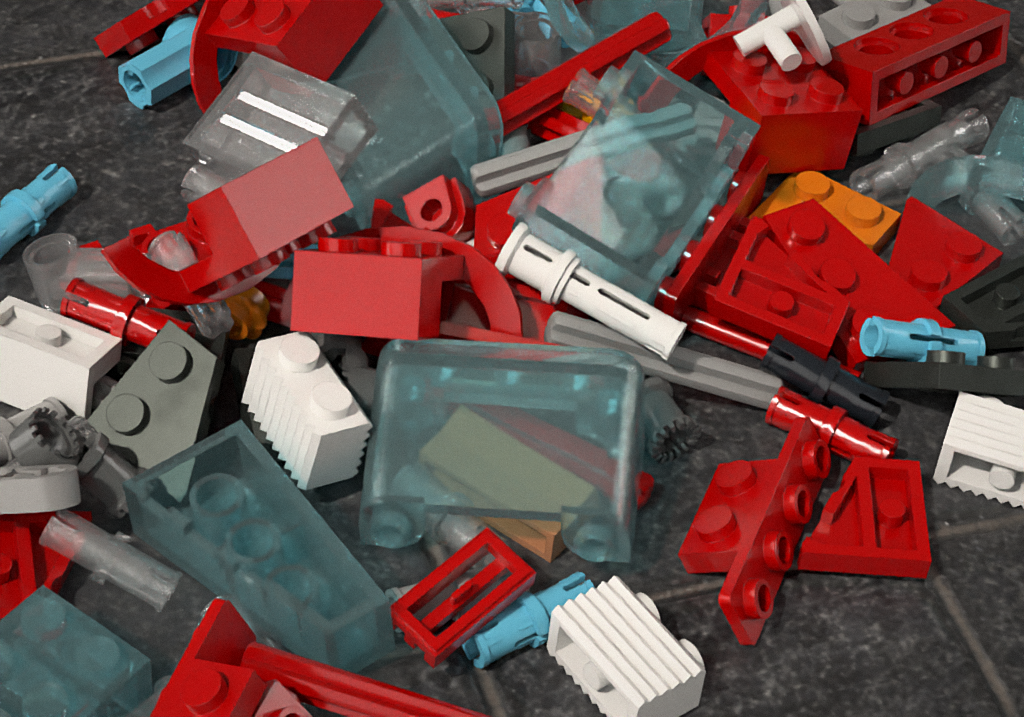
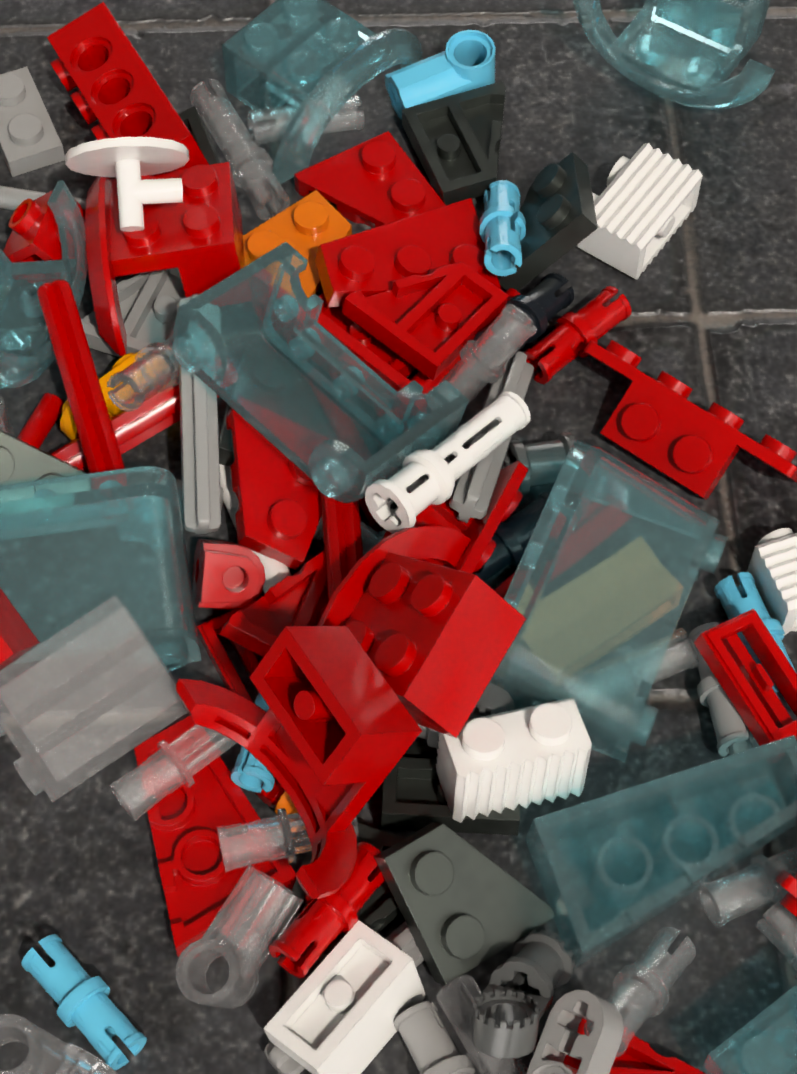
camera: 70 degrees left, 15 degrees up
(746, 338) = (485, 359): none -> clear pin
(872, 523) = (692, 336): red wing -> none

